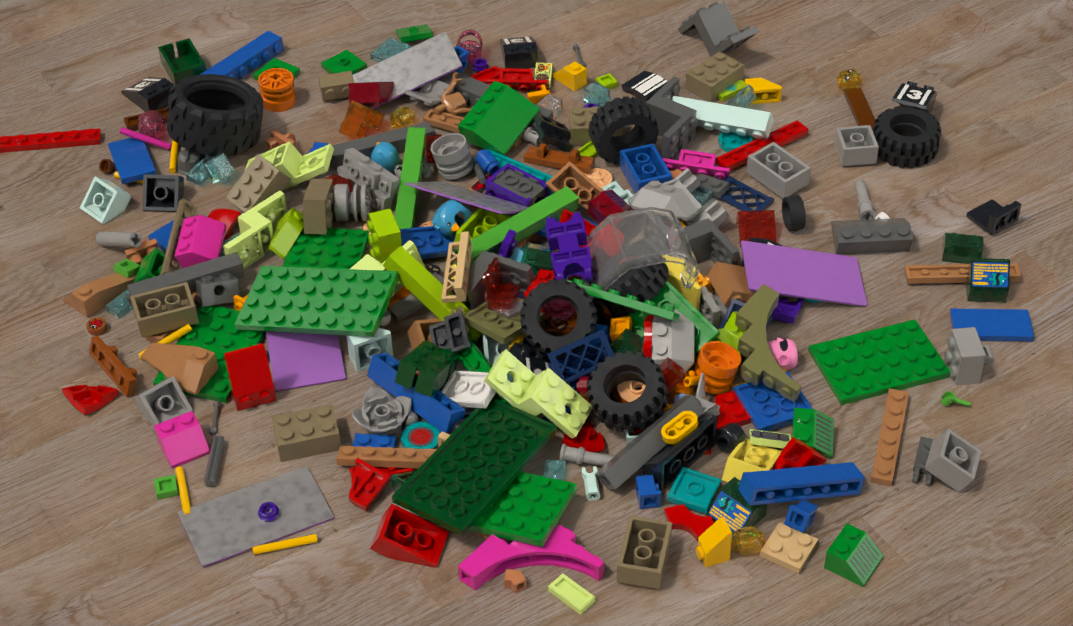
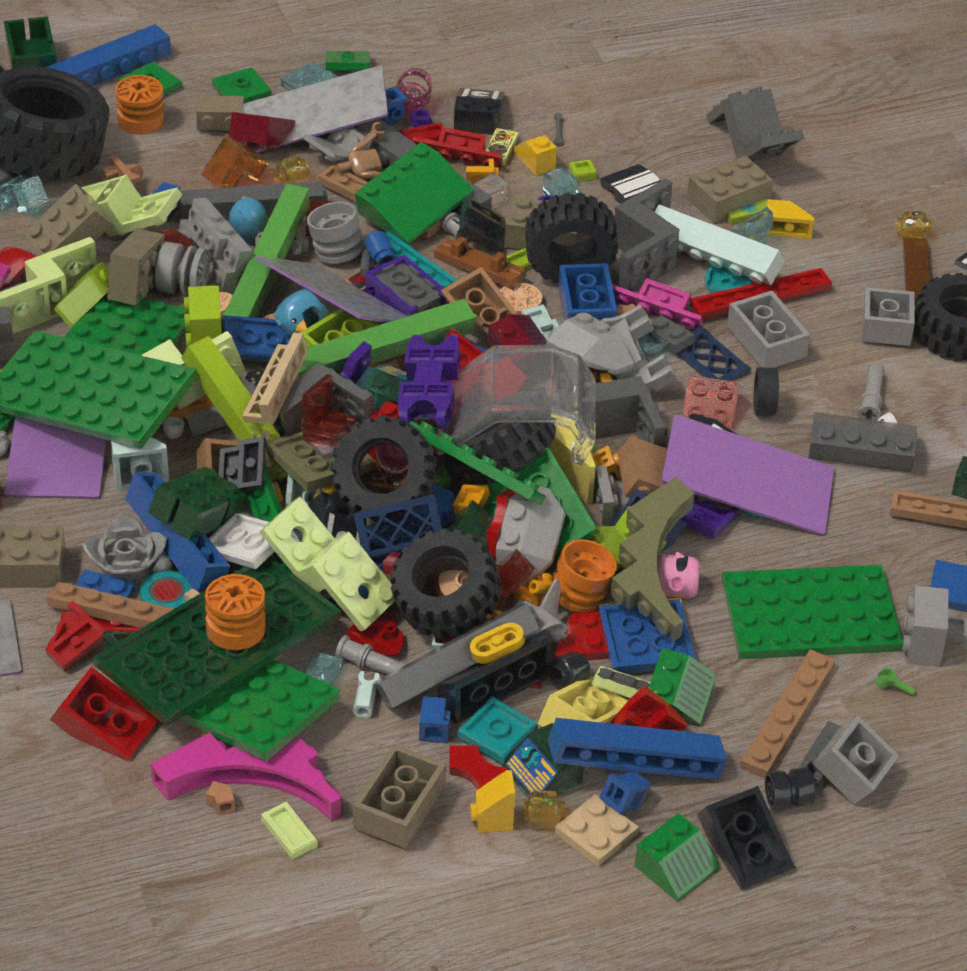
camera: 10 degrees right, 0 degrees up
(486, 442) = (235, 612): none -> orange wheel
(896, 531) = (746, 838): none -> black slope
(913, 489) = (794, 788): none -> black wheel

